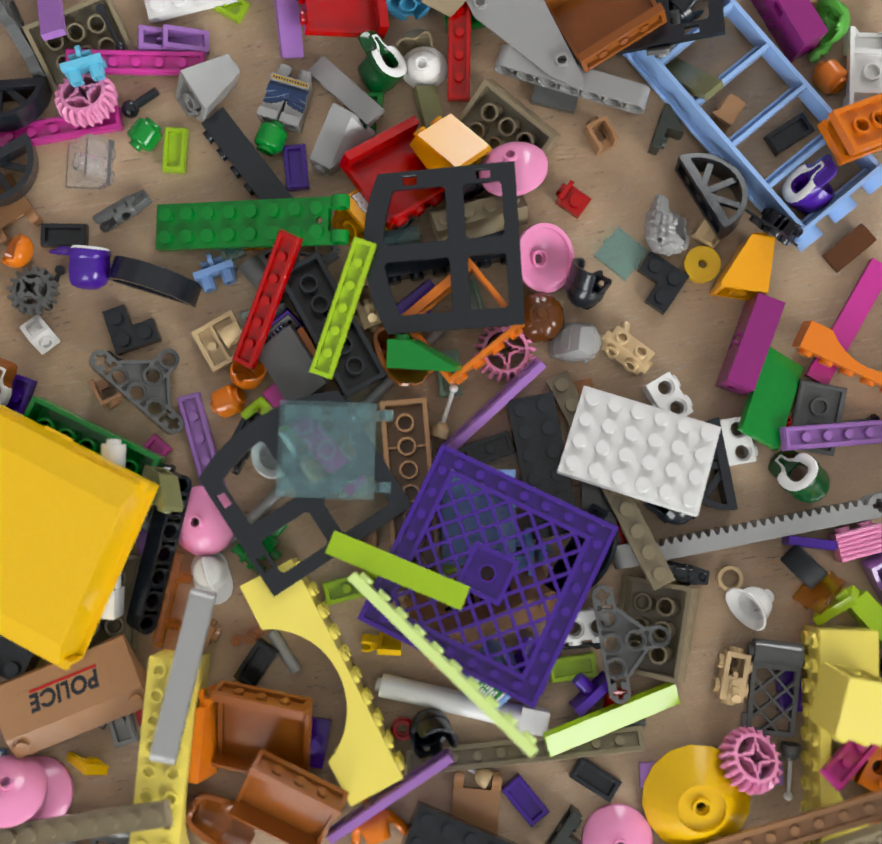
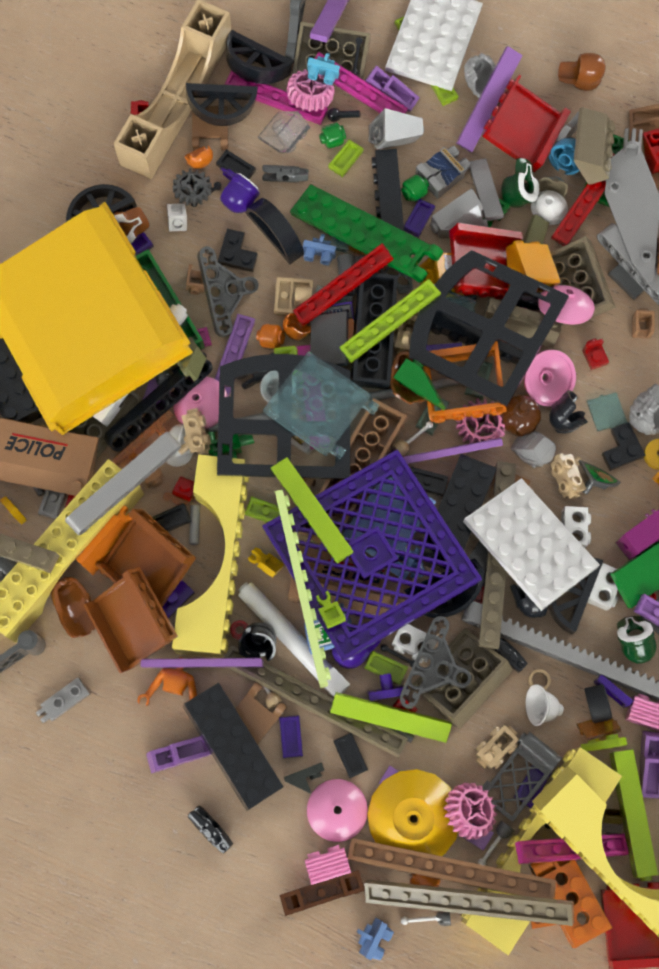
camera: 30 degrees right, 10 degrees down
(222, 563) = (196, 436): none -> tan brick
(246, 622) = (183, 488): none -> red plate
(490, 669) = (330, 612): none -> lime plate
(658, 330) = (597, 477): none -> shield

